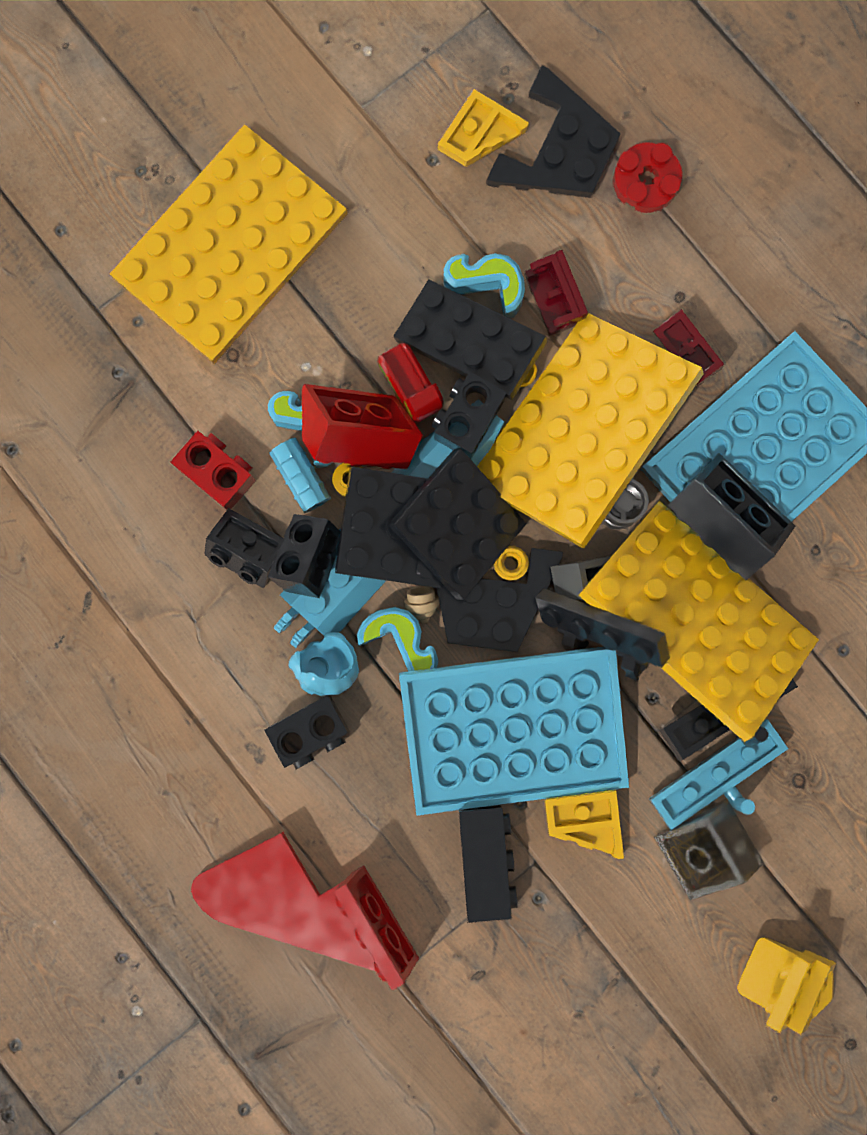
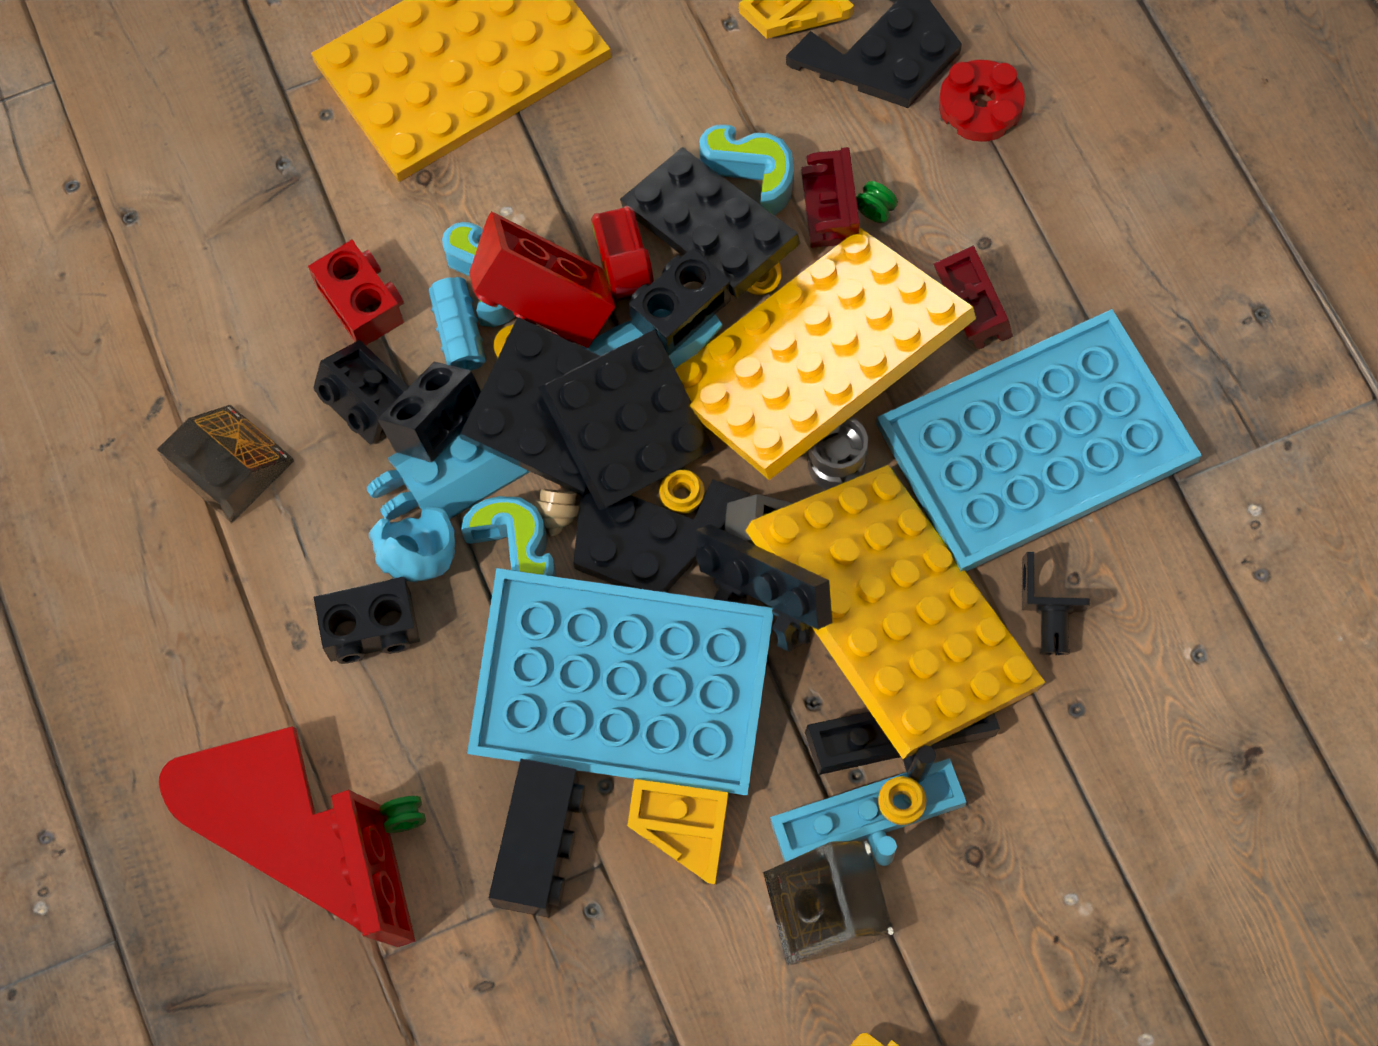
camera: 20 degrees right, 15 degrees down
(156, 632) = (224, 459): none -> clear smoke slope
(382, 871) = (402, 814): none -> green bush
(592, 286) = (876, 201): none -> green bush
(732, 517) = (968, 496): black slope -> none
(754, 769) = (904, 786): none -> yellow plate
(812, 583) = (1053, 611): none -> black bracket

